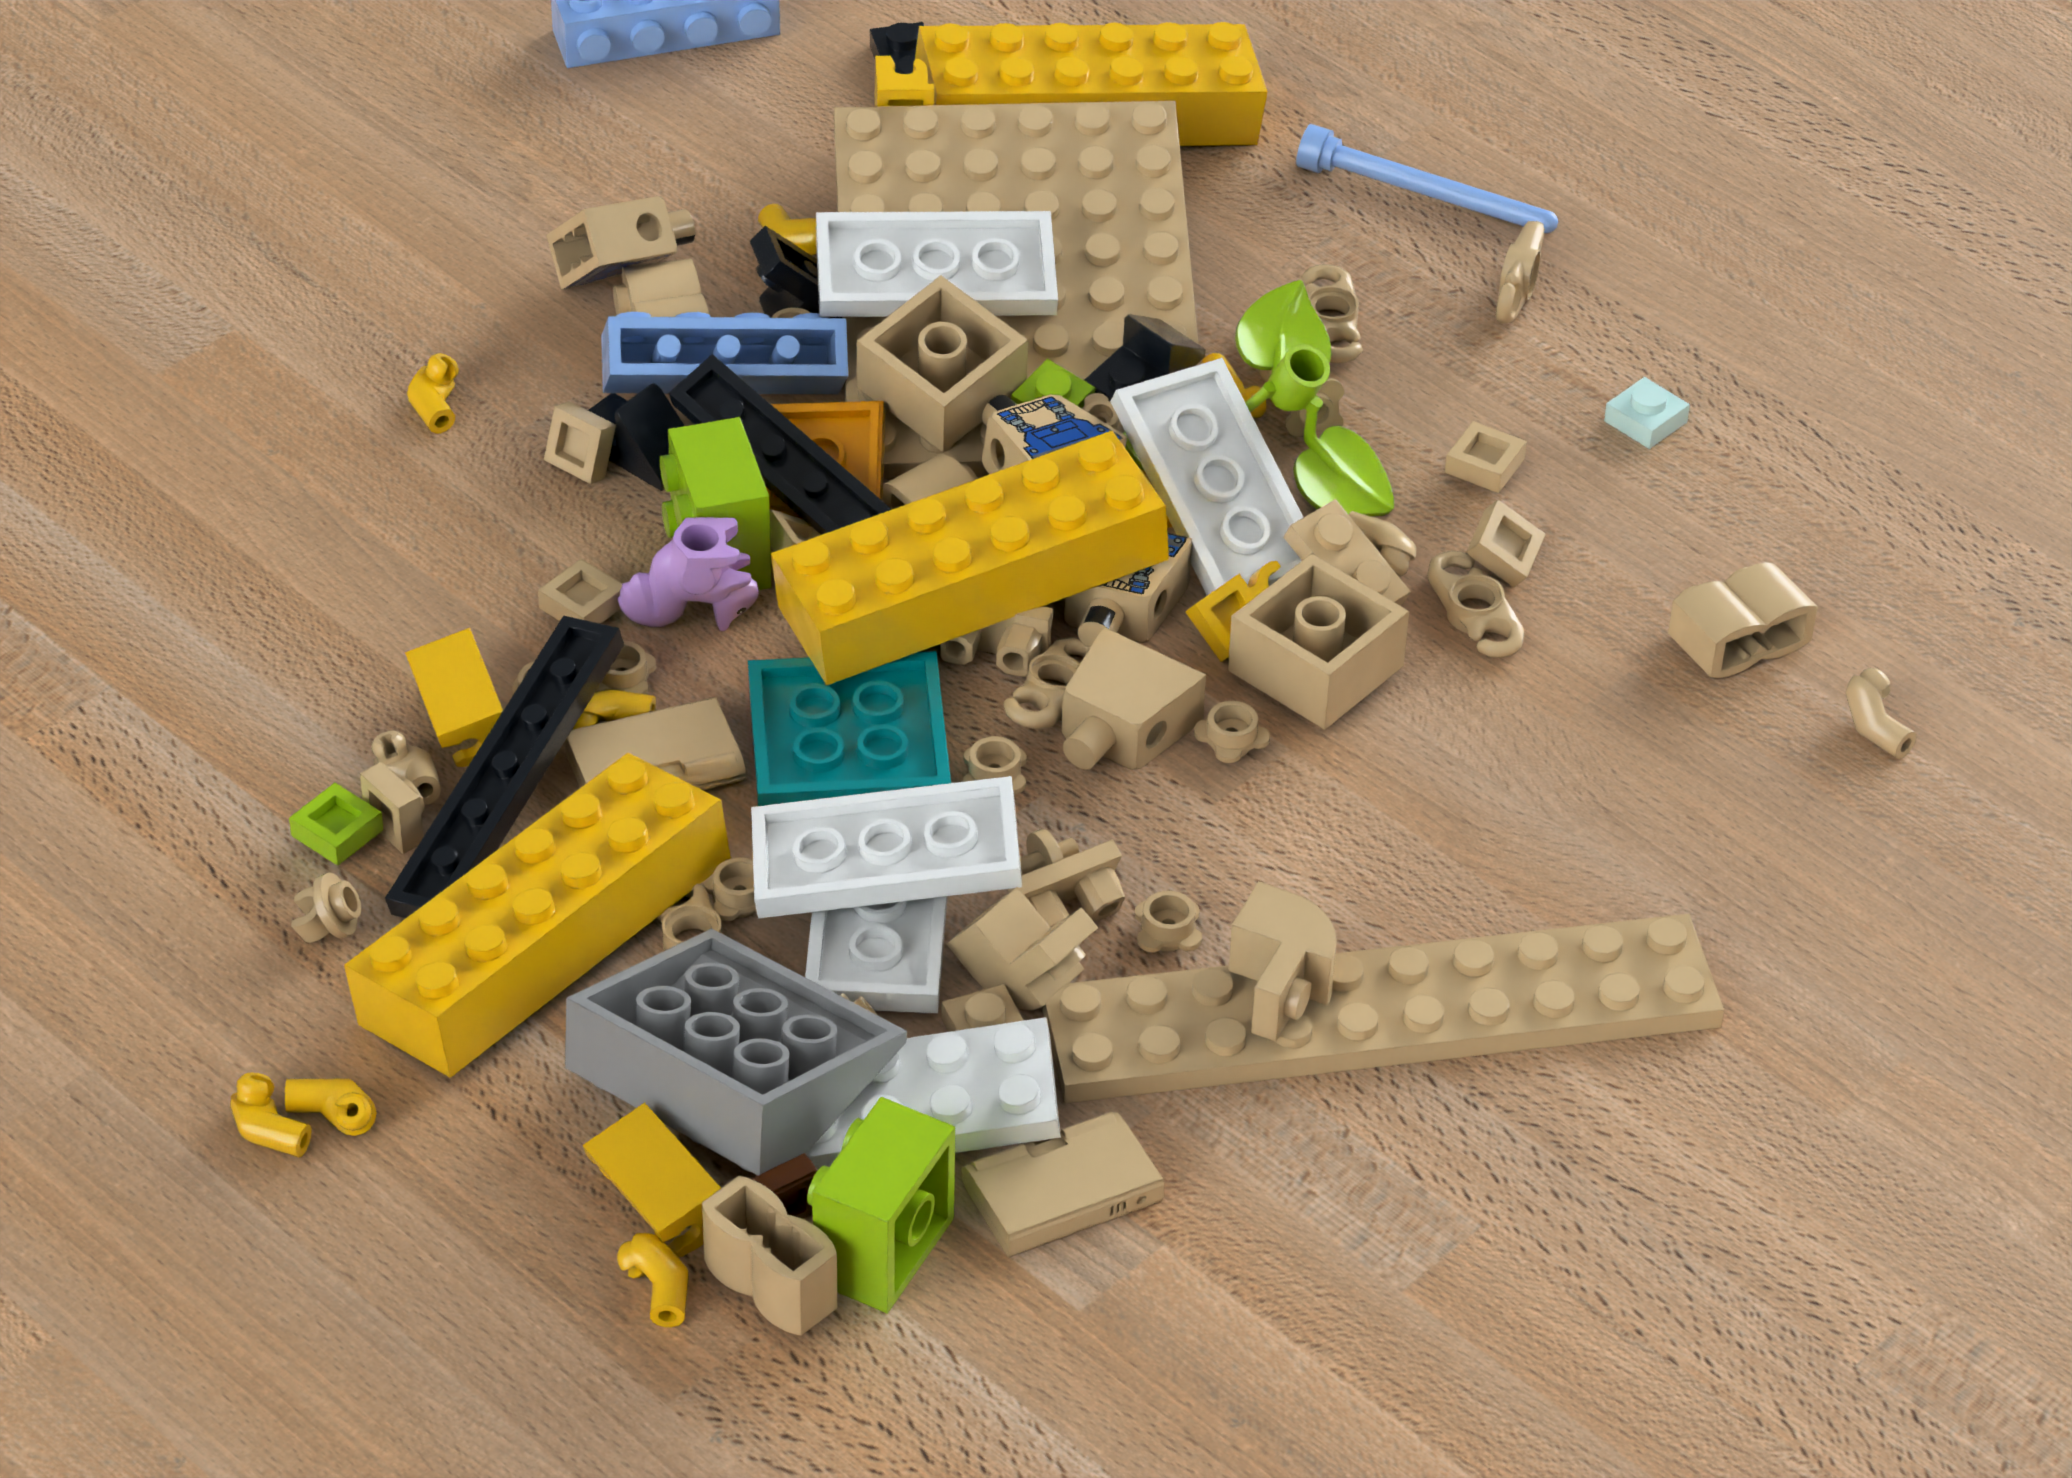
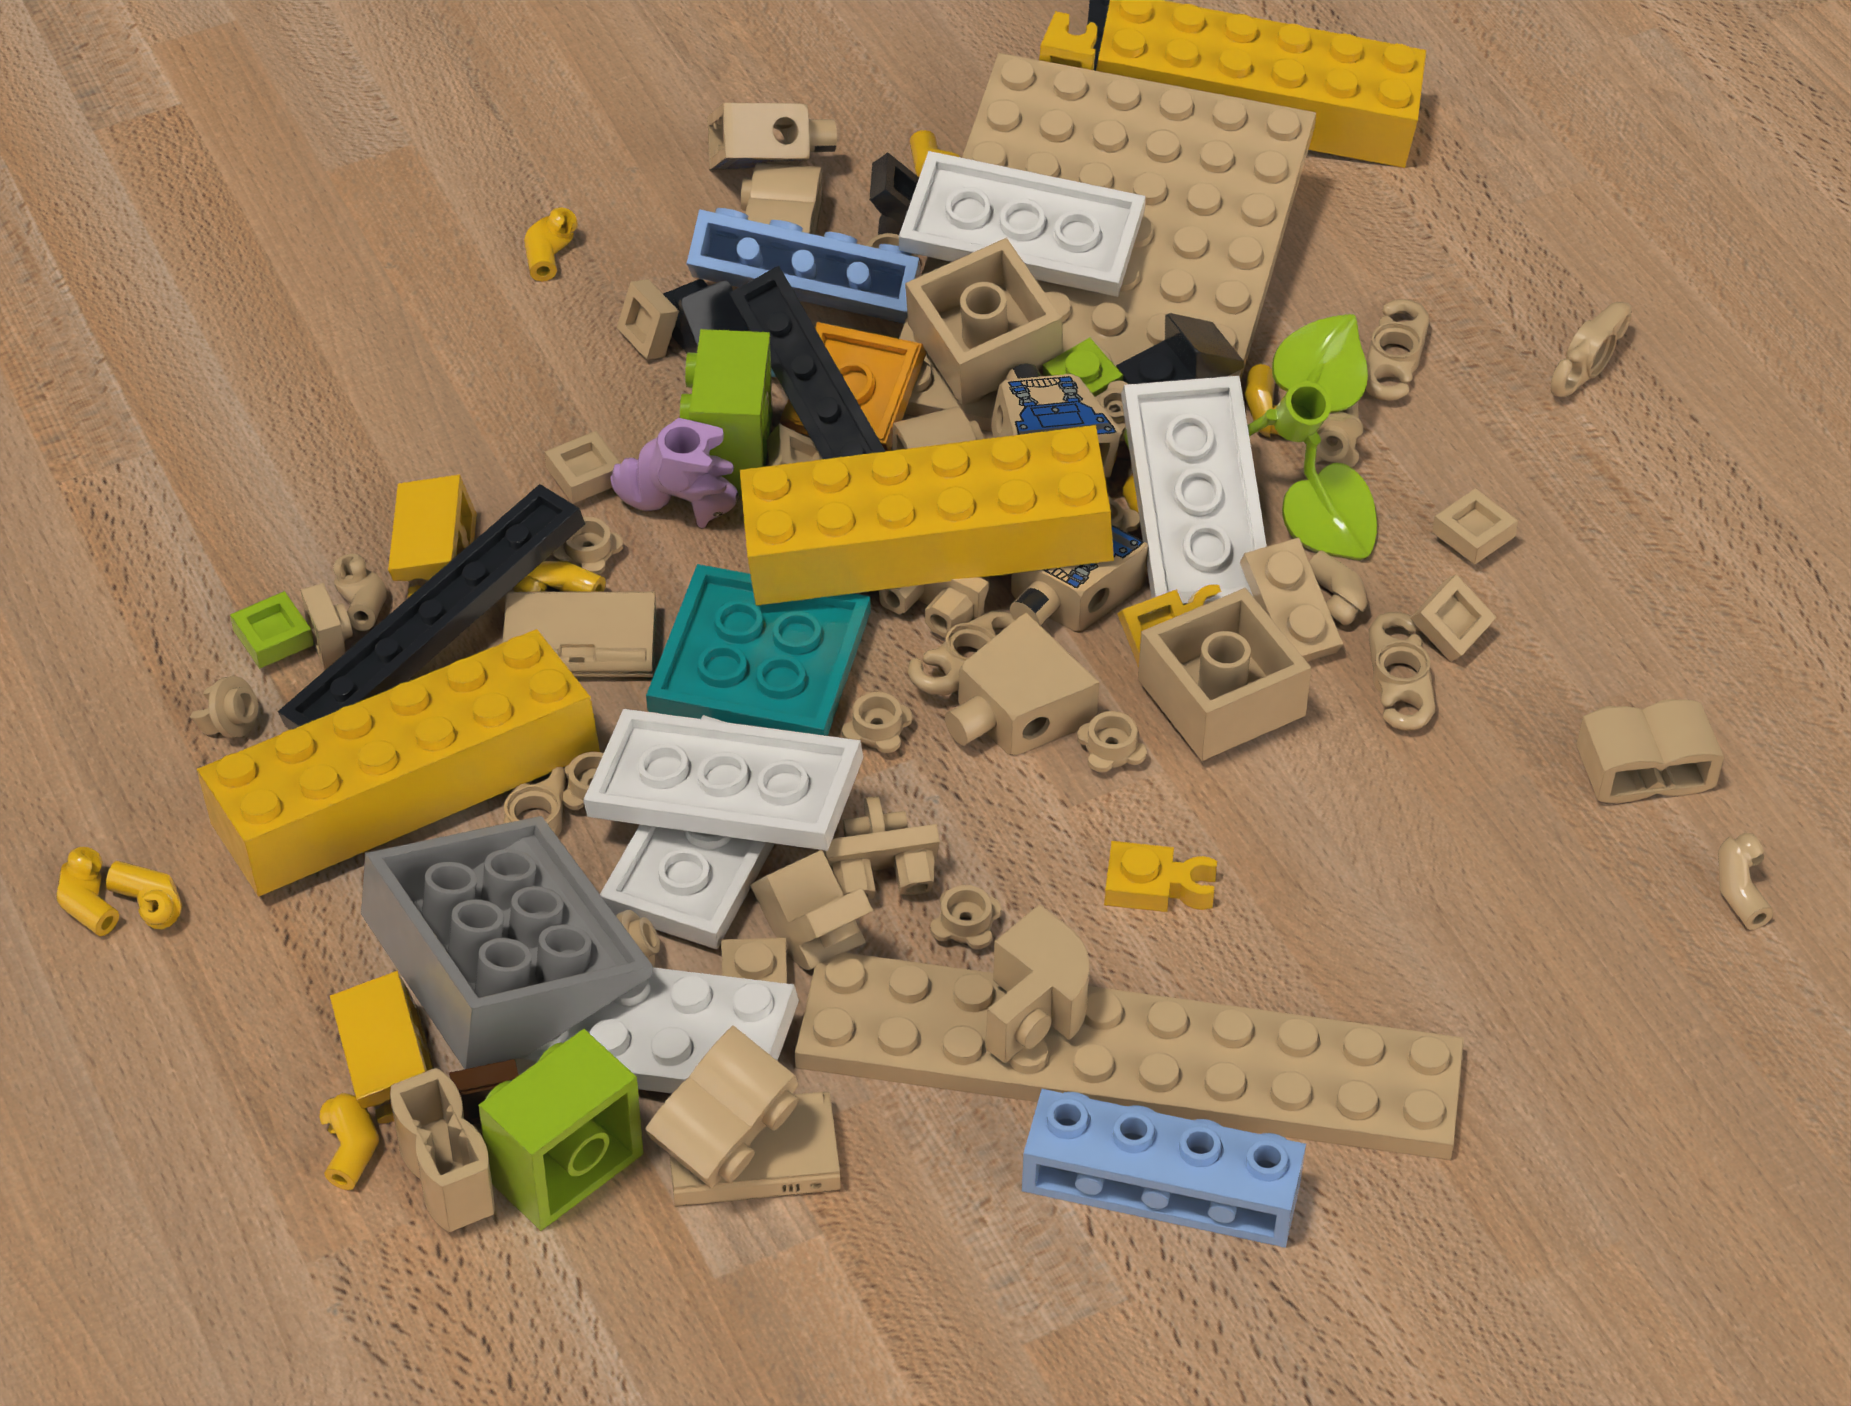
camera: 20 degrees right, 5 degrees up
(1038, 1142) = (723, 1108): none -> tan brick
(1324, 151) = (1457, 187): light blue piece -> none
(1326, 848) = (1147, 877): none -> yellow plate
(1468, 1096) = (1163, 1167): none -> light blue brick
(1646, 412) = (1655, 517): light aqua plate -> none

